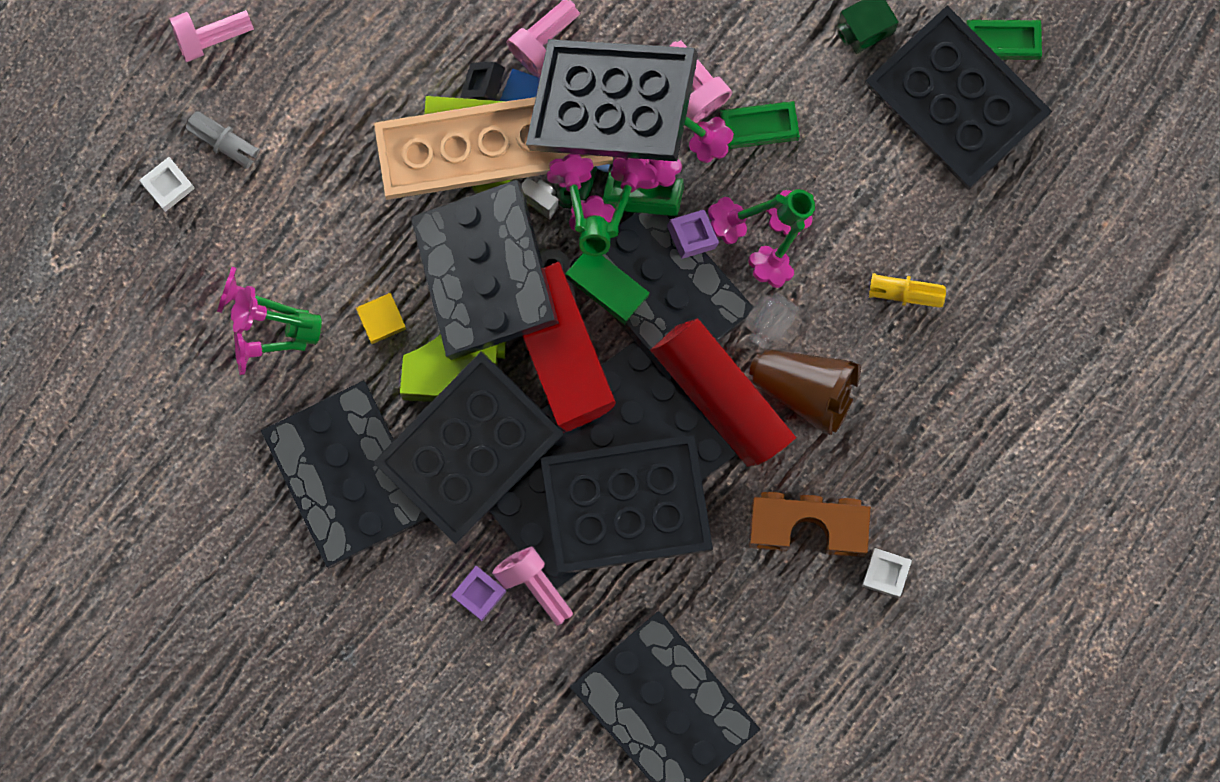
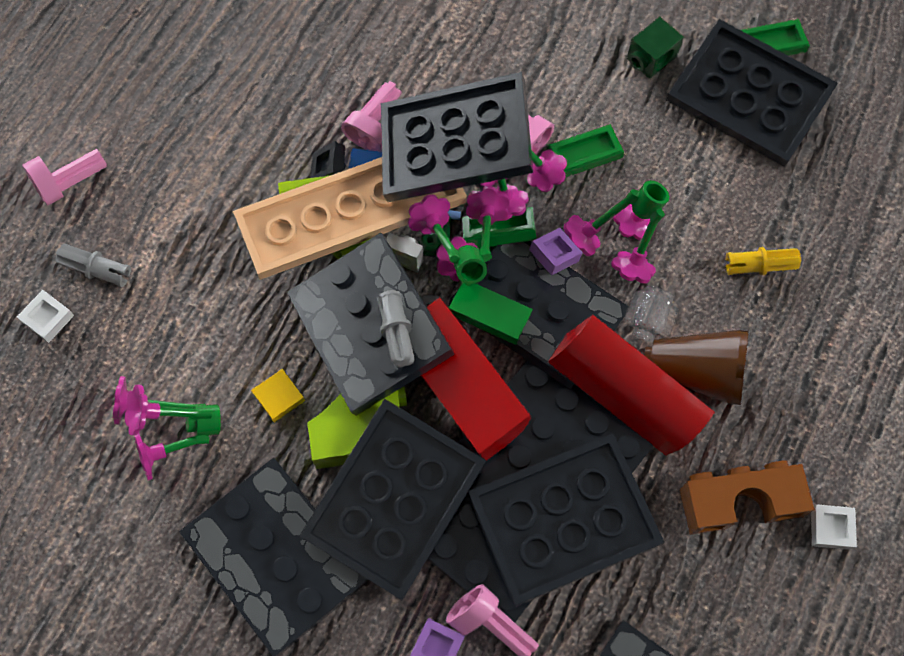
camera: 15 degrees left, 10 degrees down
(506, 287) = (395, 328): none -> light grey axle

